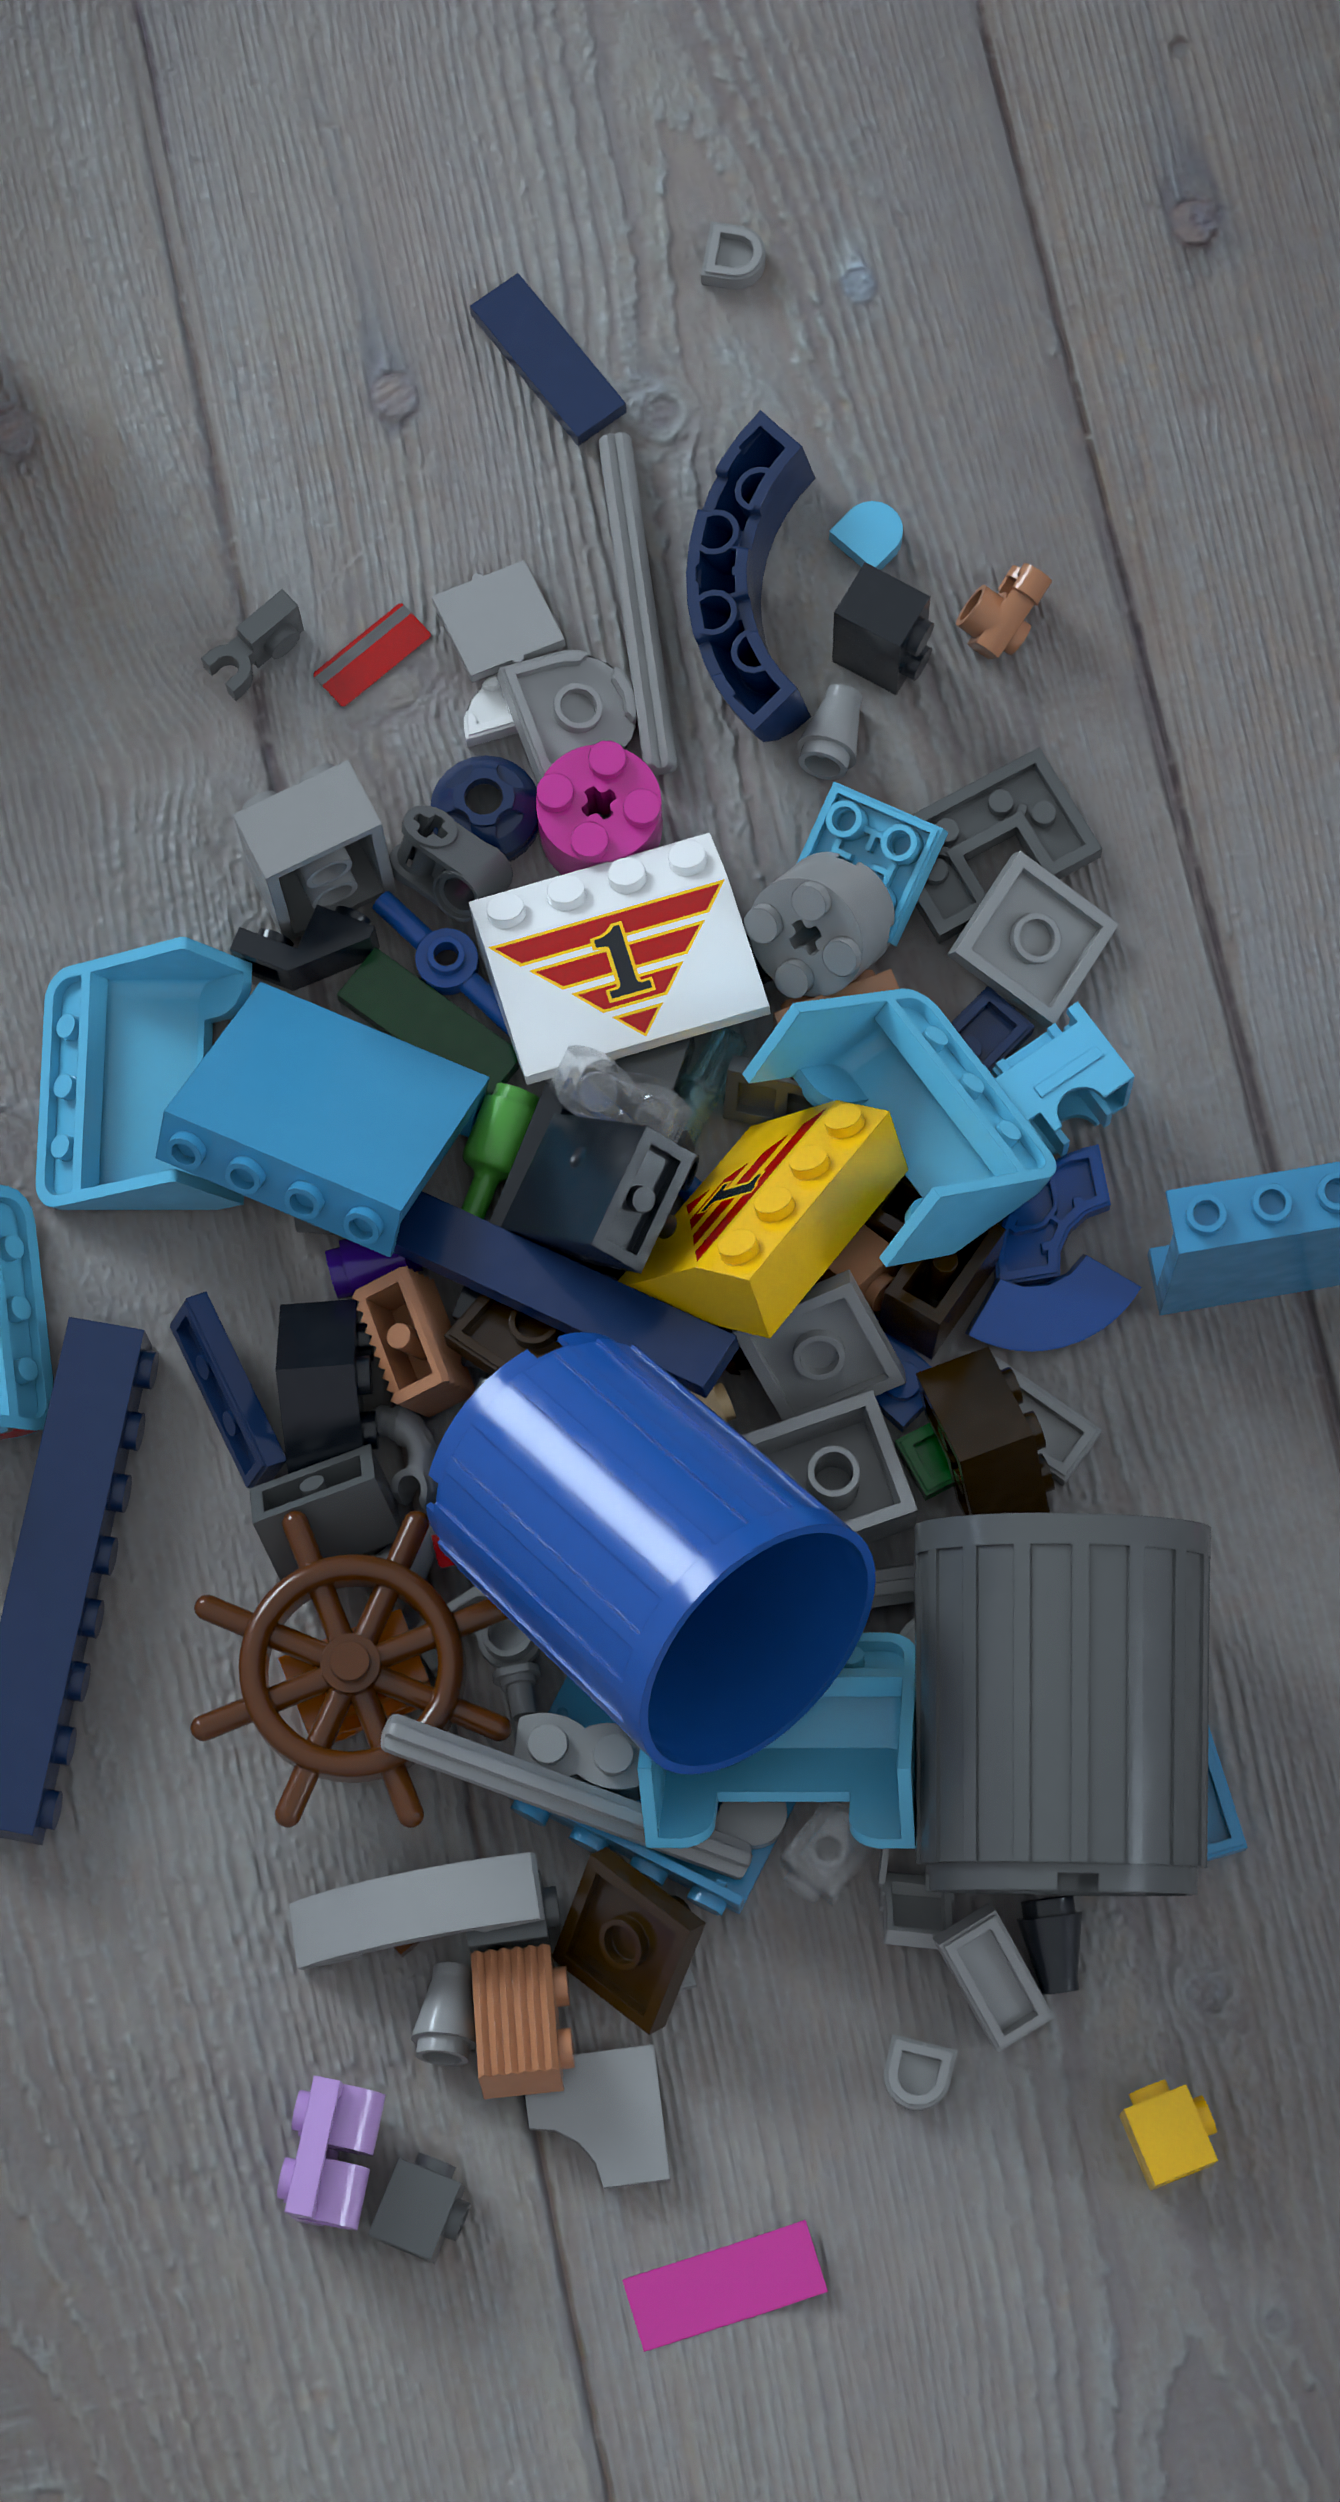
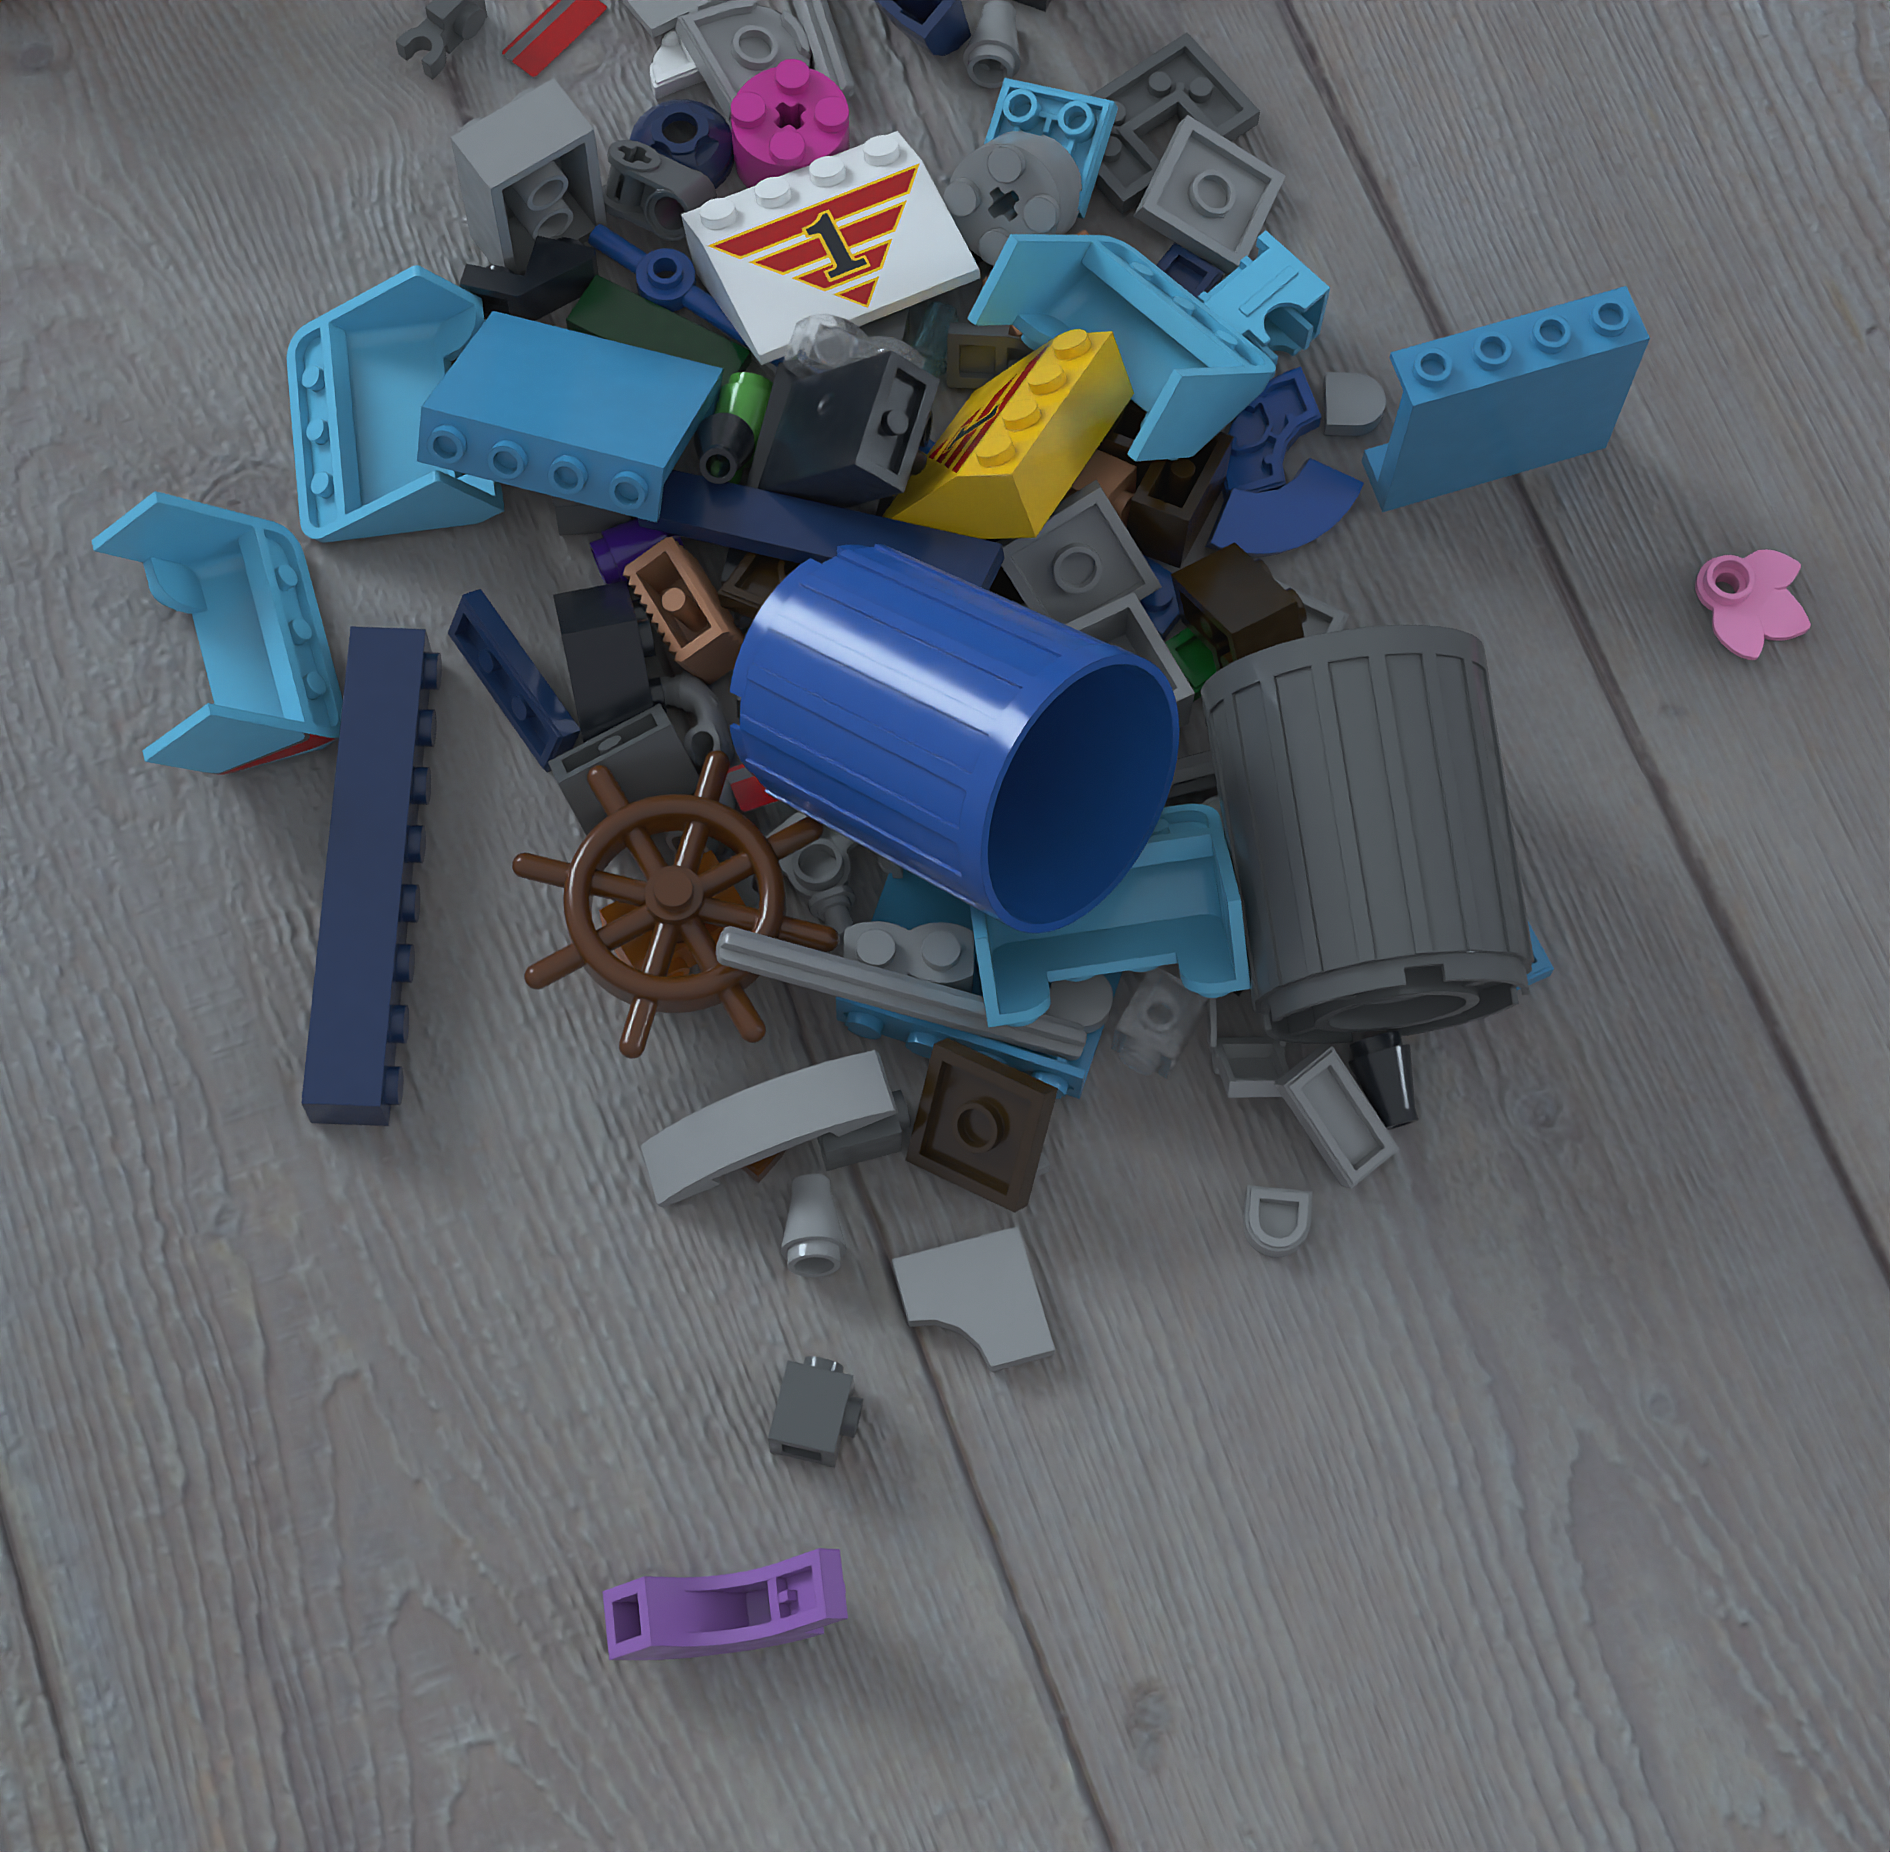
camera: 15 degrees left, 5 degrees down
(300, 2400) = (725, 1612): none -> medium lavender arch
(330, 2121) = (722, 1340): lavender plate -> none
(473, 1172) = (723, 446): none -> black cone
(518, 2021) = (885, 1218): nougat brick -> none
(724, 2286) = (1123, 1447): dark pink sticker -> none
(1142, 1191) = (1351, 403): none -> light grey tile
(1169, 2132) = (1529, 1239): yellow brick -> none

